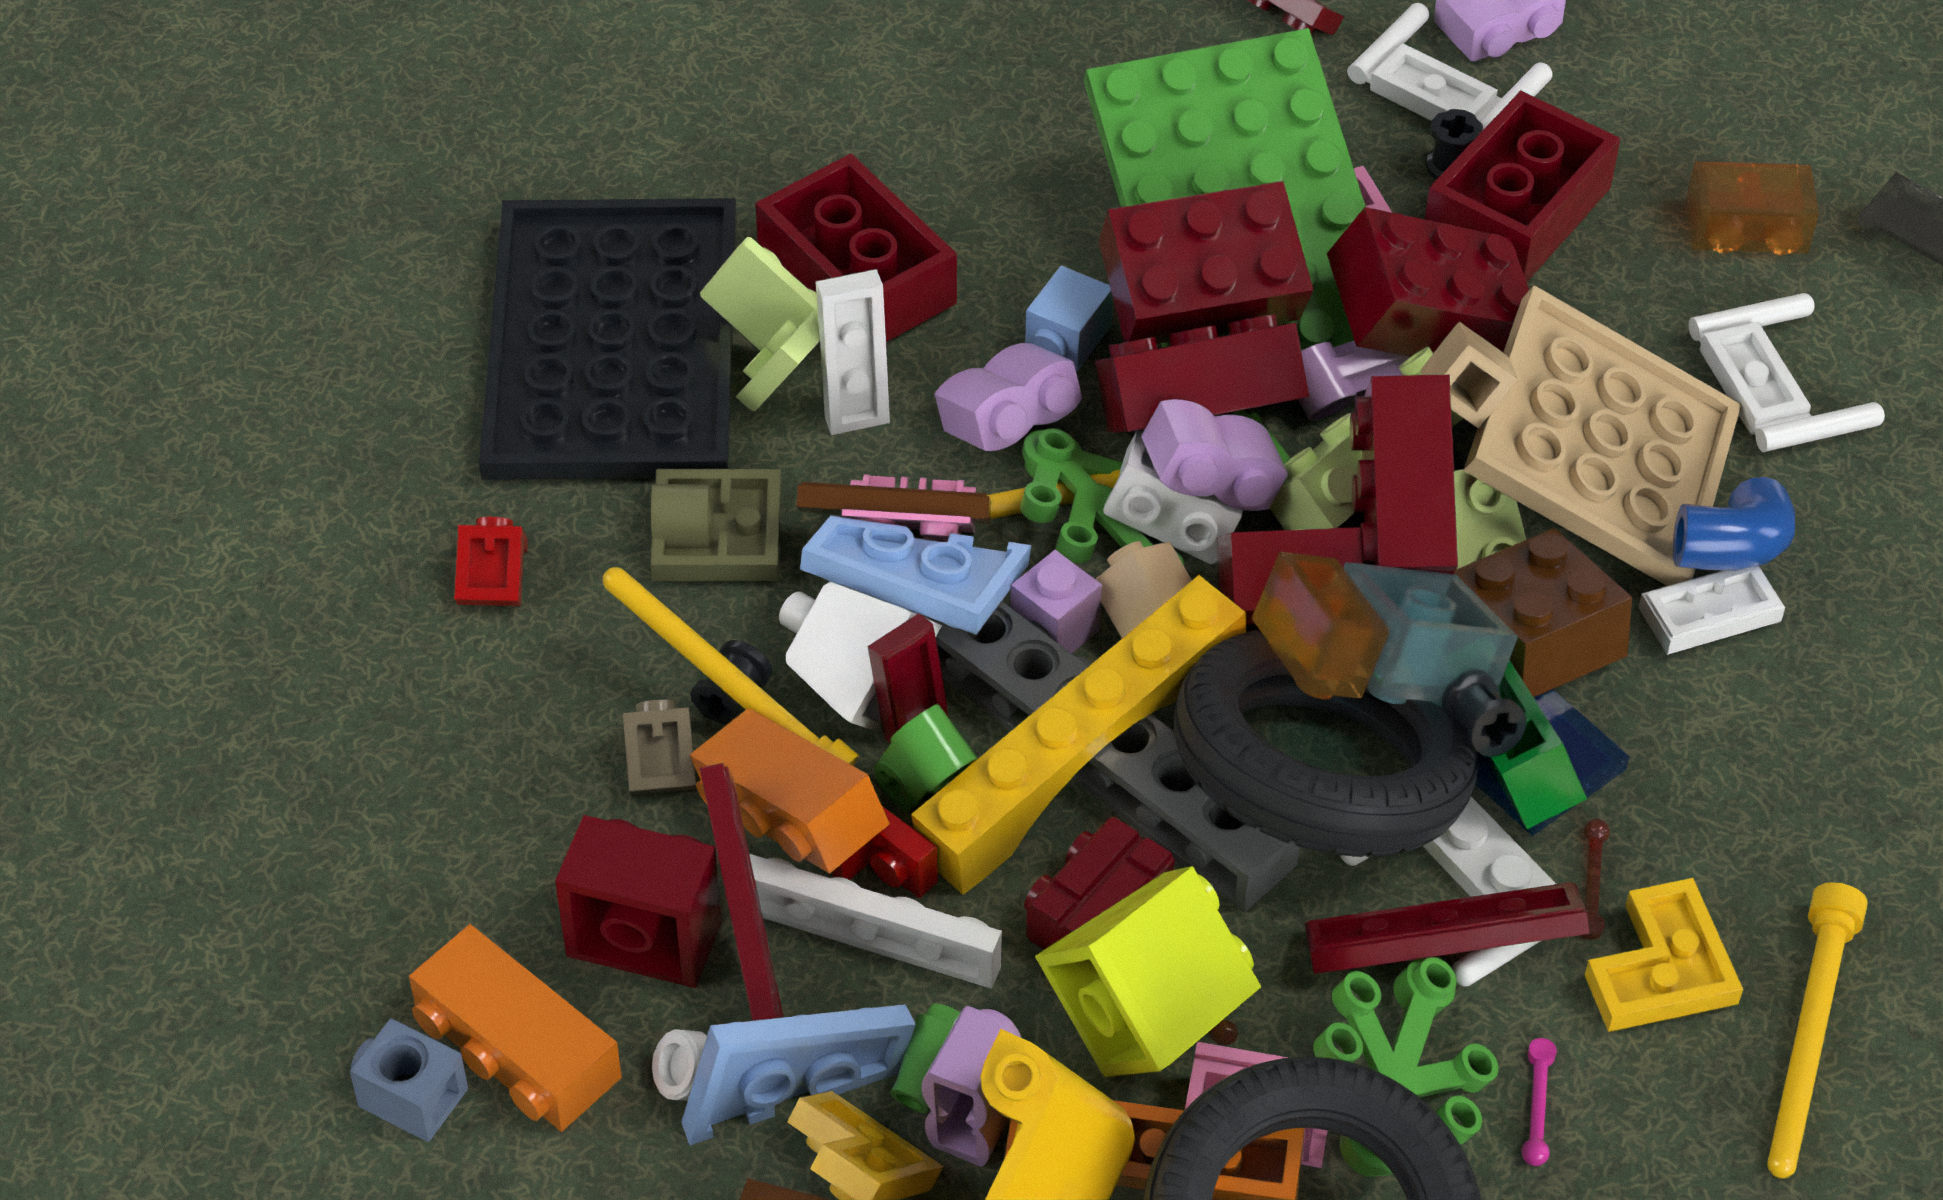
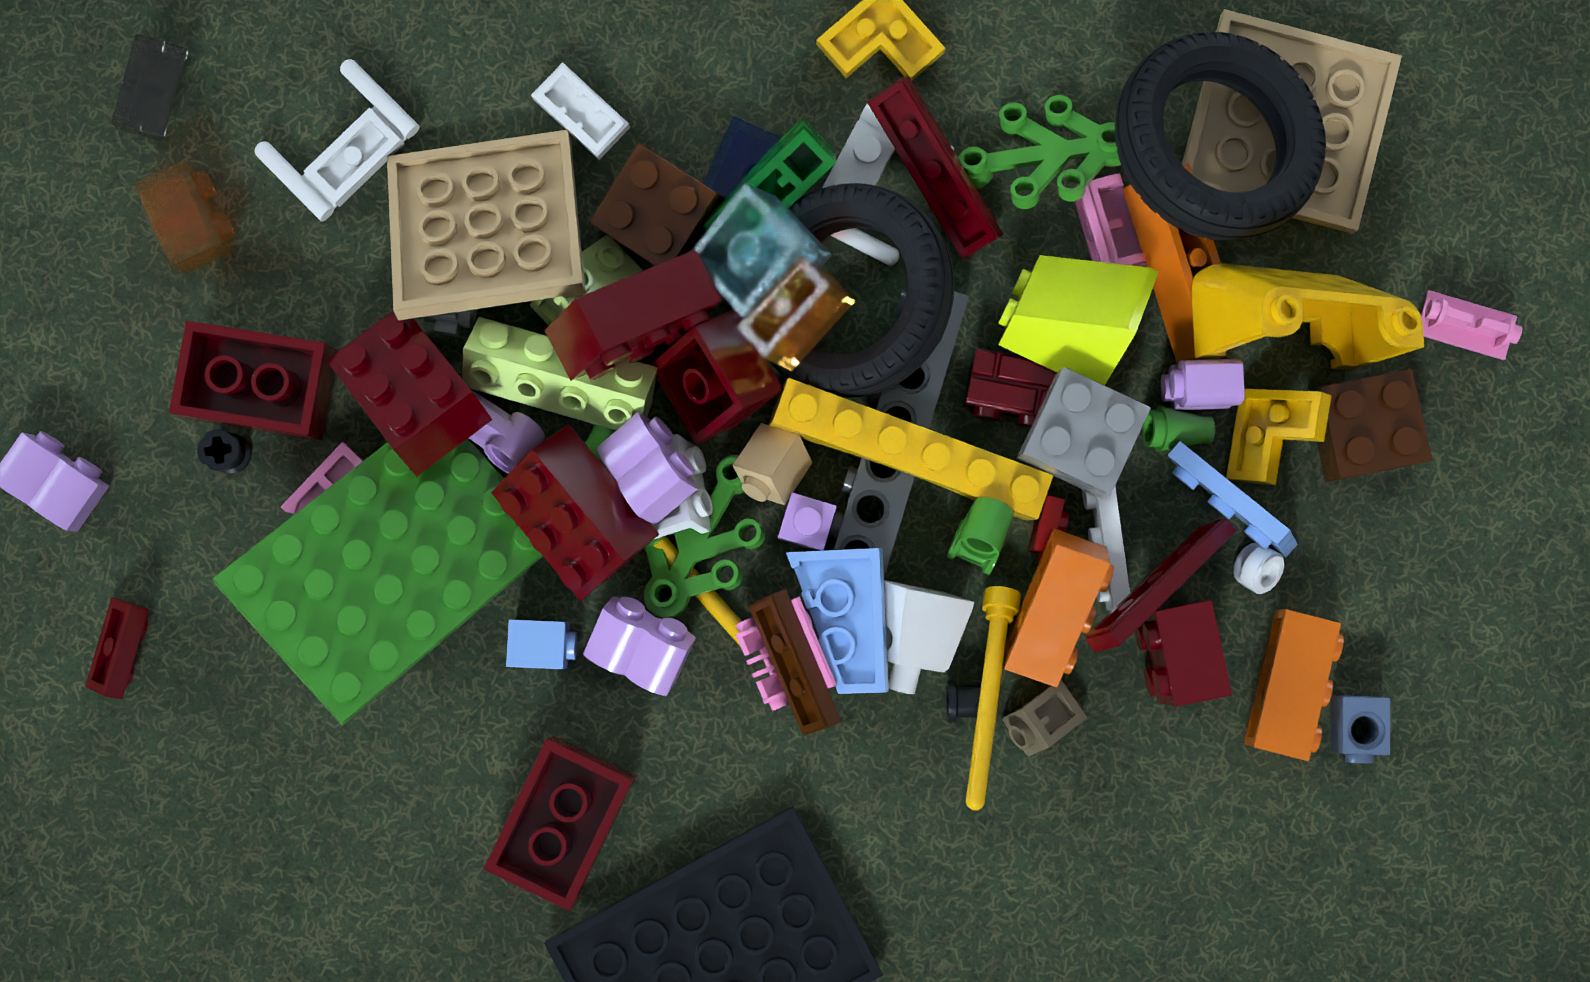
camera: 115 degrees left, 35 degrees up
(490, 562) = (956, 917): red bracket -> none
(716, 525) = (844, 787): olive plate -> none
(769, 311) = (683, 813): yellowish green bracket -> none
(853, 351) = (681, 760): white plate -> none
(906, 673) = (931, 578): dark red tile -> none
(991, 889) = (1083, 433): none -> light grey brick
(1205, 262) = (479, 551): dark red brick -> none
(1428, 84) = (163, 493): white plate -> none
(1477, 373) = (511, 316): tan brick -> none
(1491, 722) = (800, 189): black bush -> none
(1541, 1055) = (977, 85): dark pink hinge -> none
(1596, 833) = (866, 94): clear red hinge -> none
(1736, 537) = (519, 98): blue cylinder -> none

